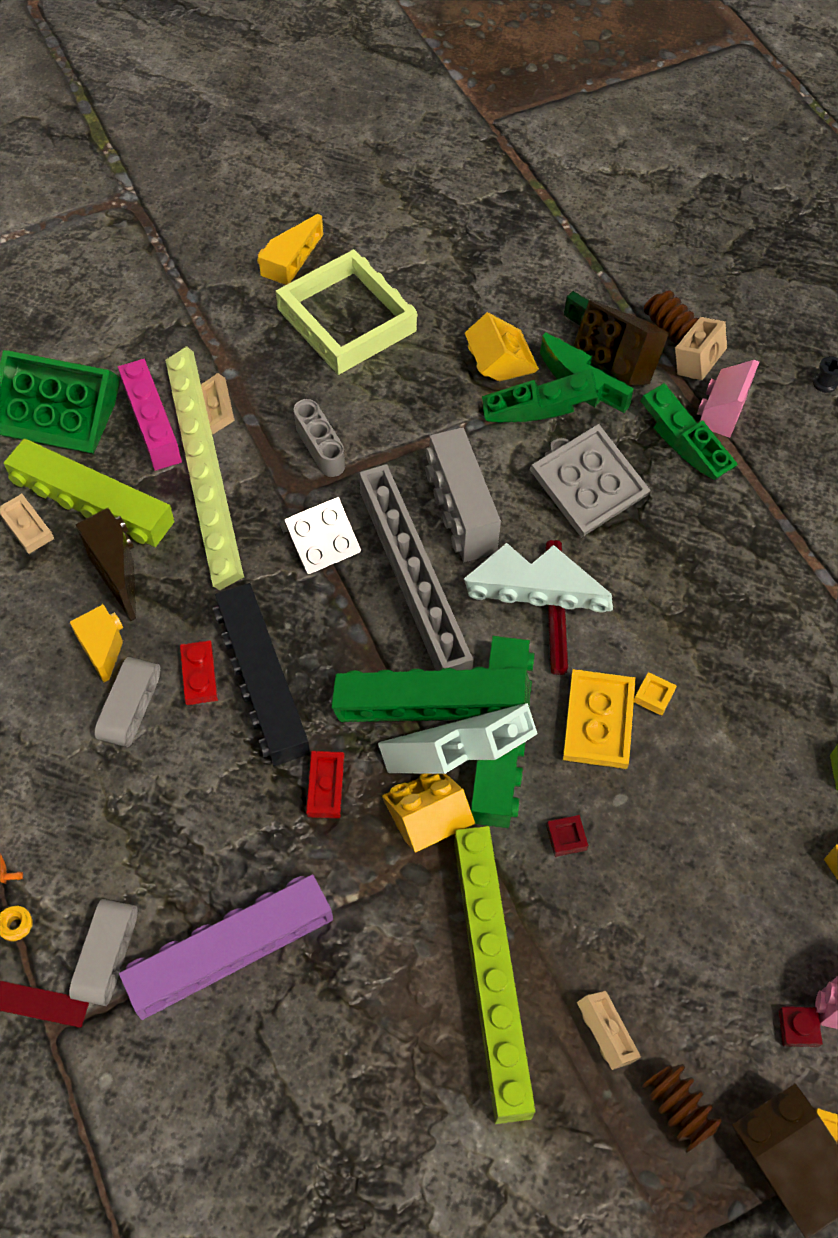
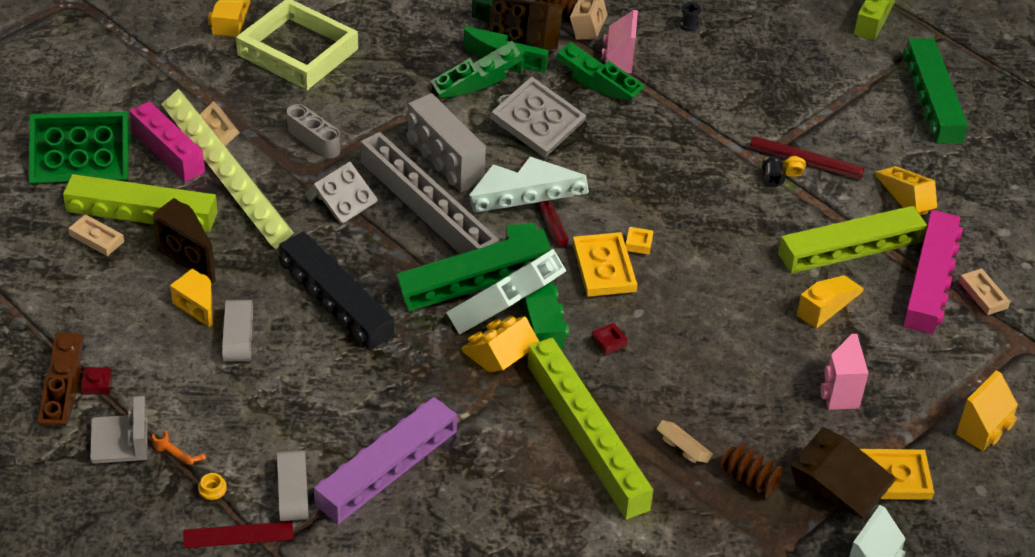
camera: 20 degrees left, 15 degrees down
(198, 672) = (284, 303): red plate -> none
(325, 784) = (416, 348): red plate -> none
(499, 349) = (431, 46): yellow slope -> none
(800, 1027) = (815, 411): dark red plate -> none

